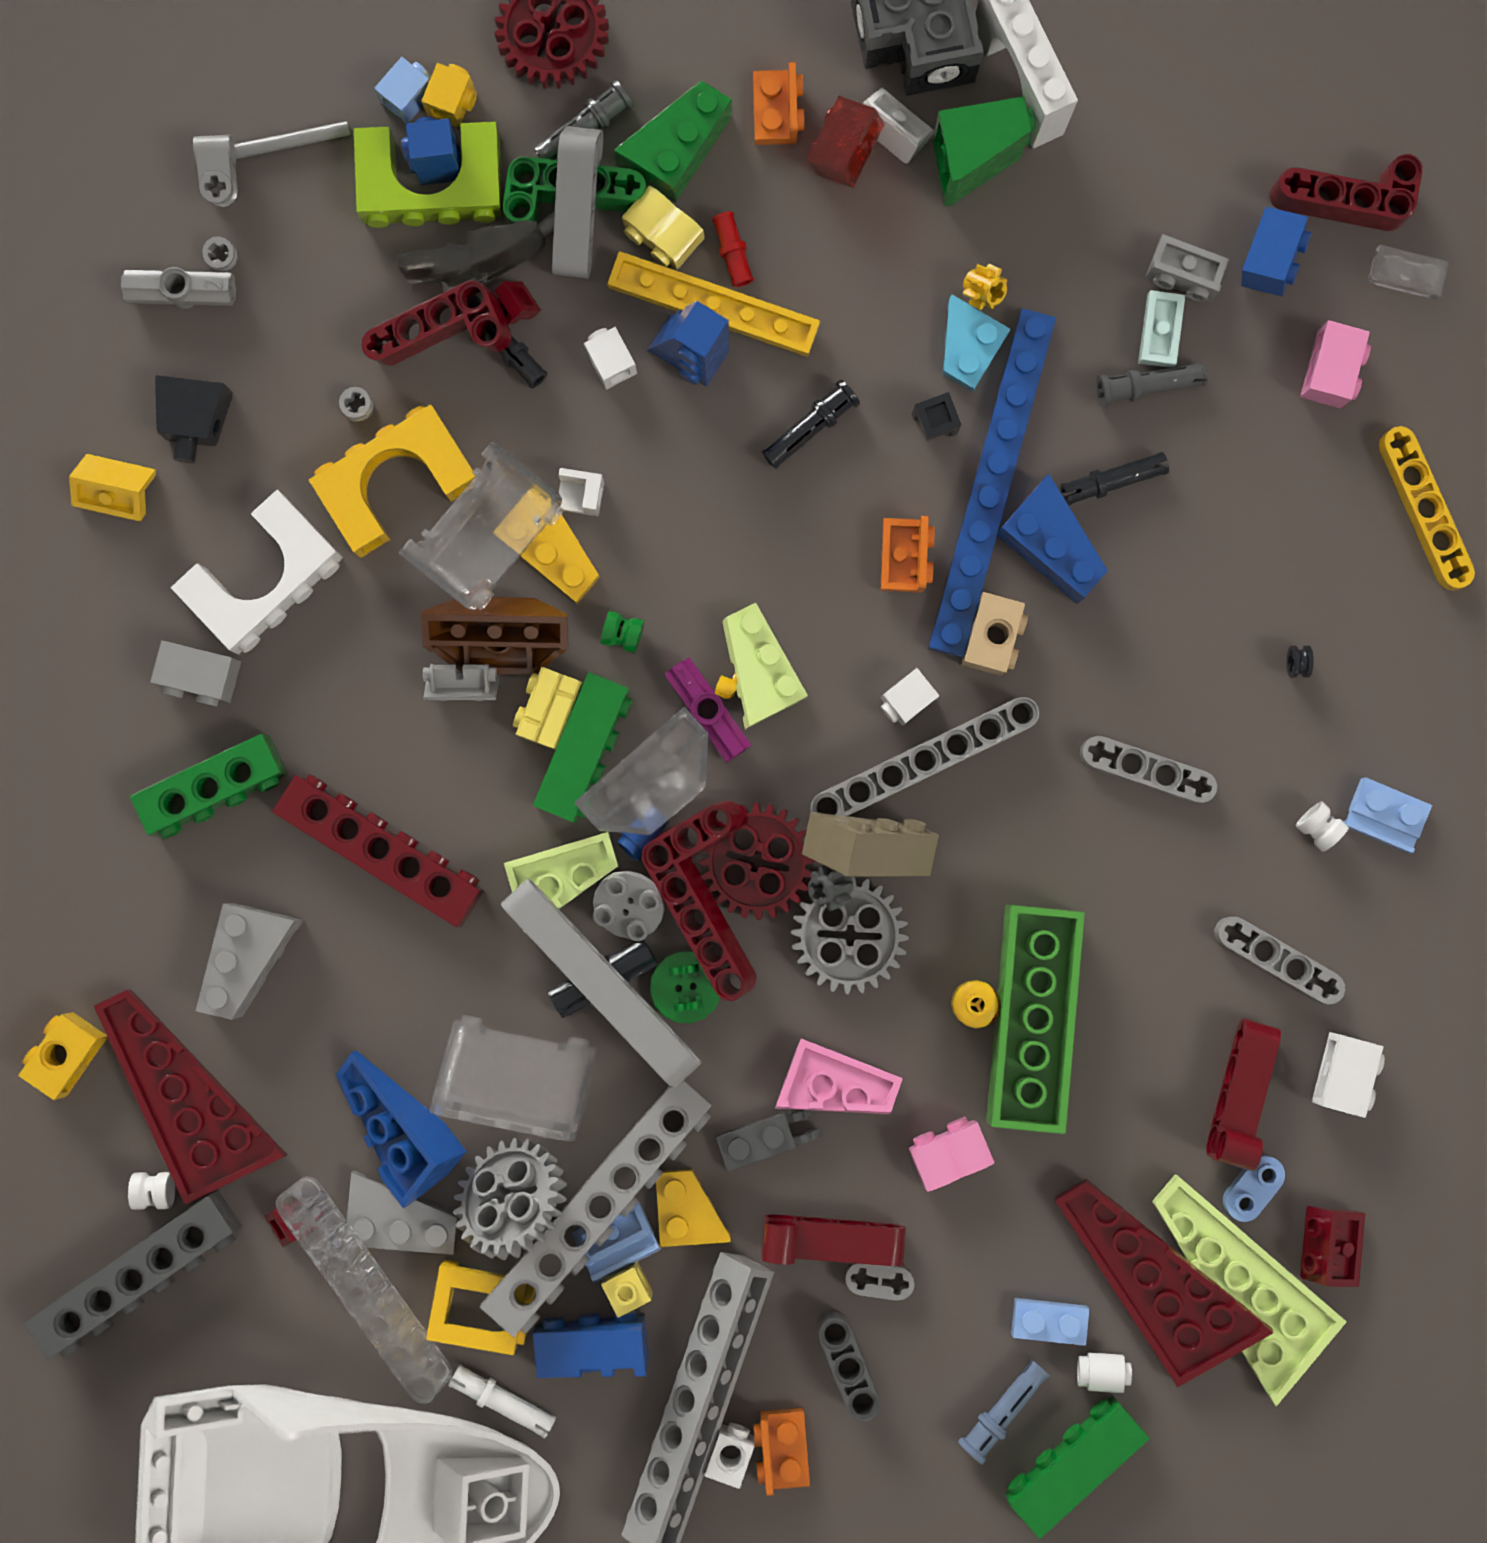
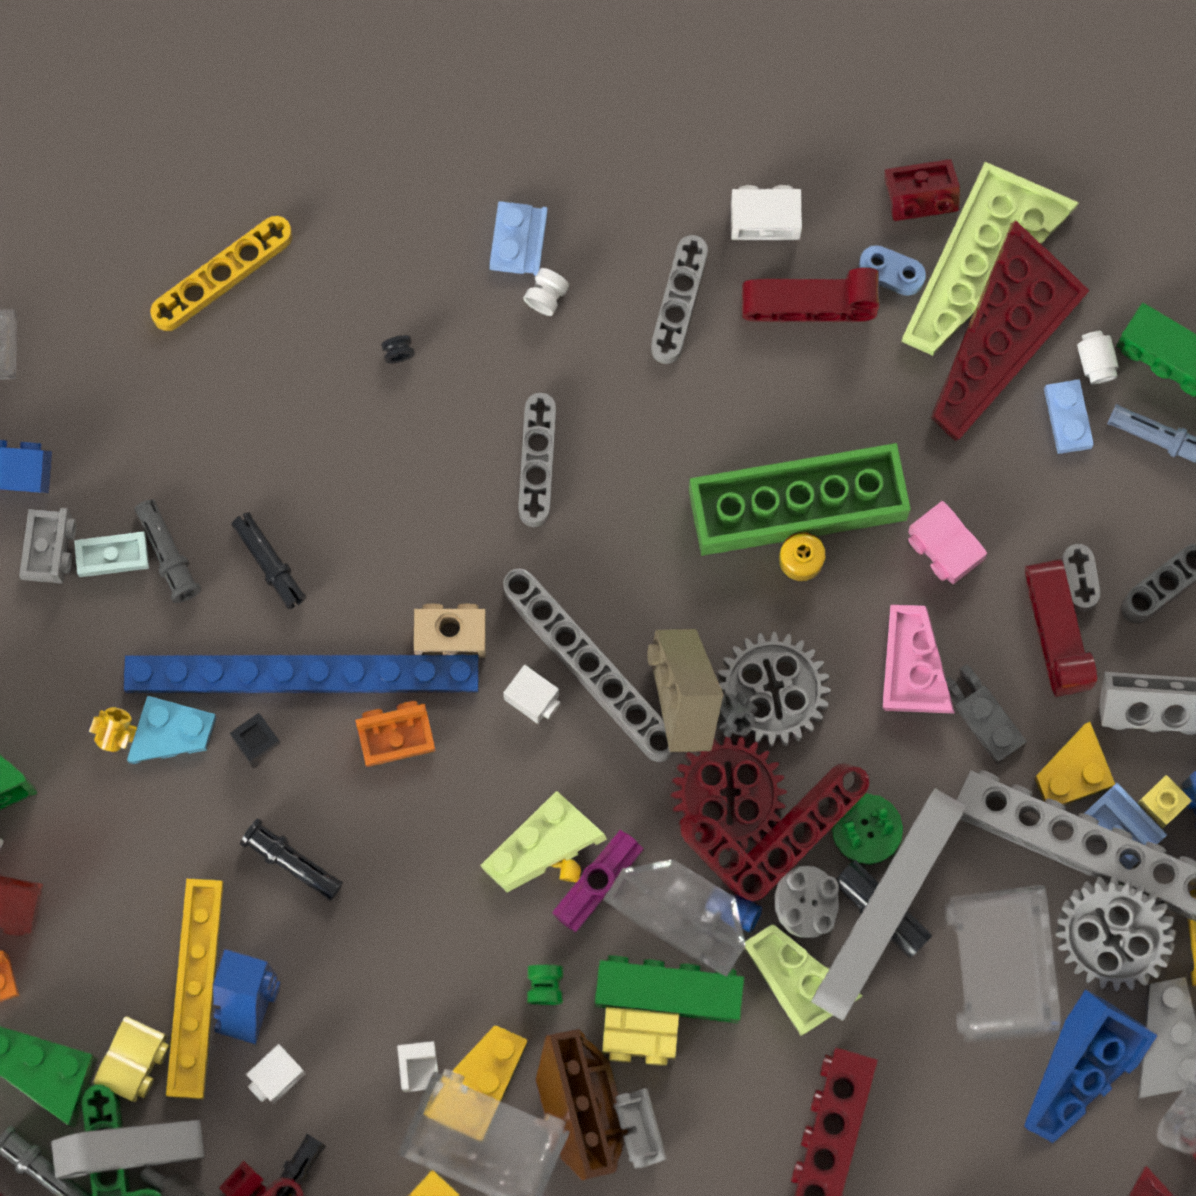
camera: 105 degrees left, 10 degrees down
(733, 249) = (134, 984): red pin -> none
(1054, 541) = (345, 600): blue wedge -> none
(1336, 364) = (106, 386): bright pink brick -> none

